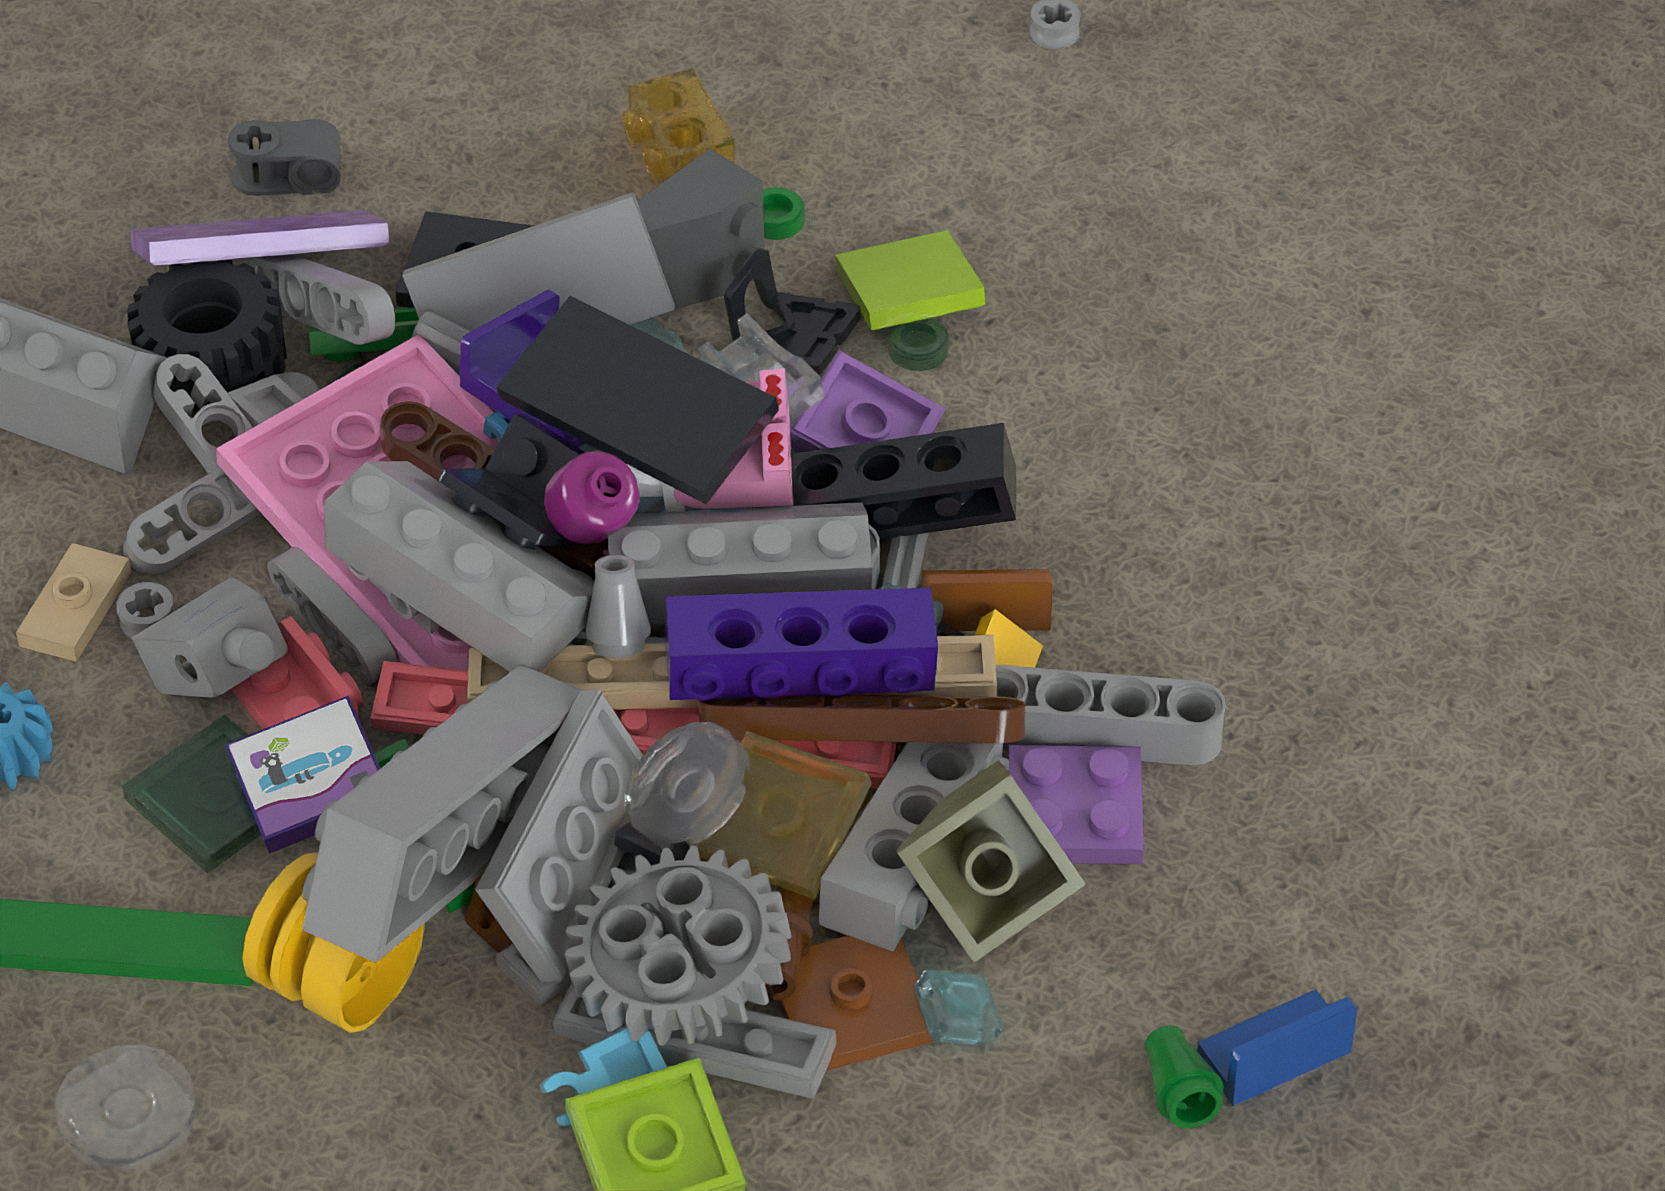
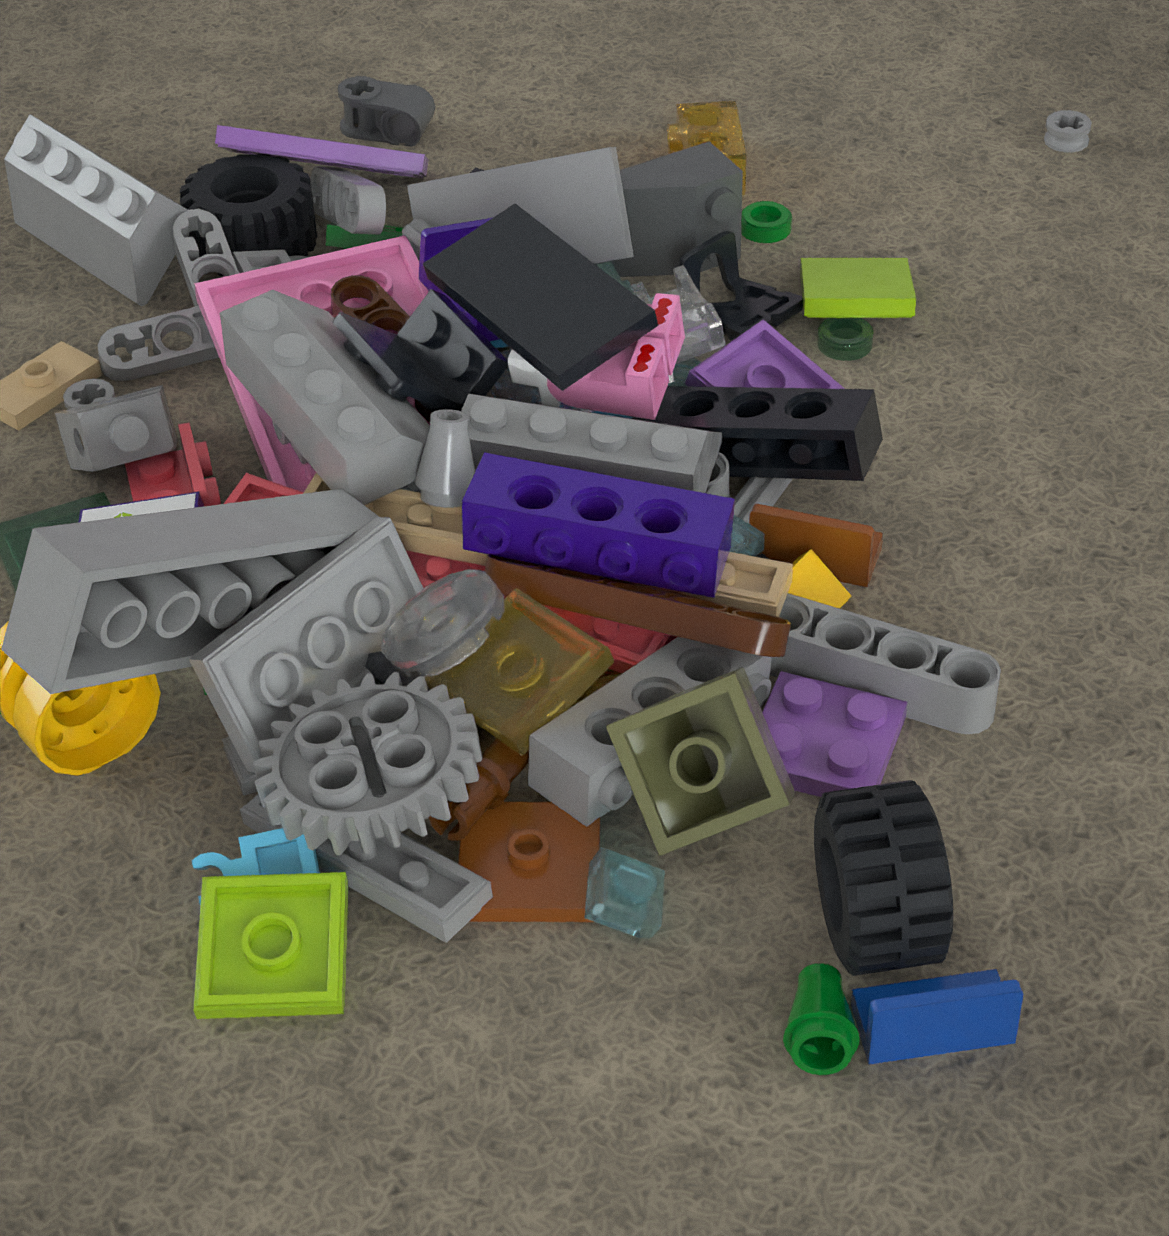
camera: 20 degrees right, 5 degrees down
(331, 612) = (232, 428): light grey beam -> none
(591, 497) = (459, 361): magenta head -> none
(1198, 933) = (883, 877): none -> black tyre

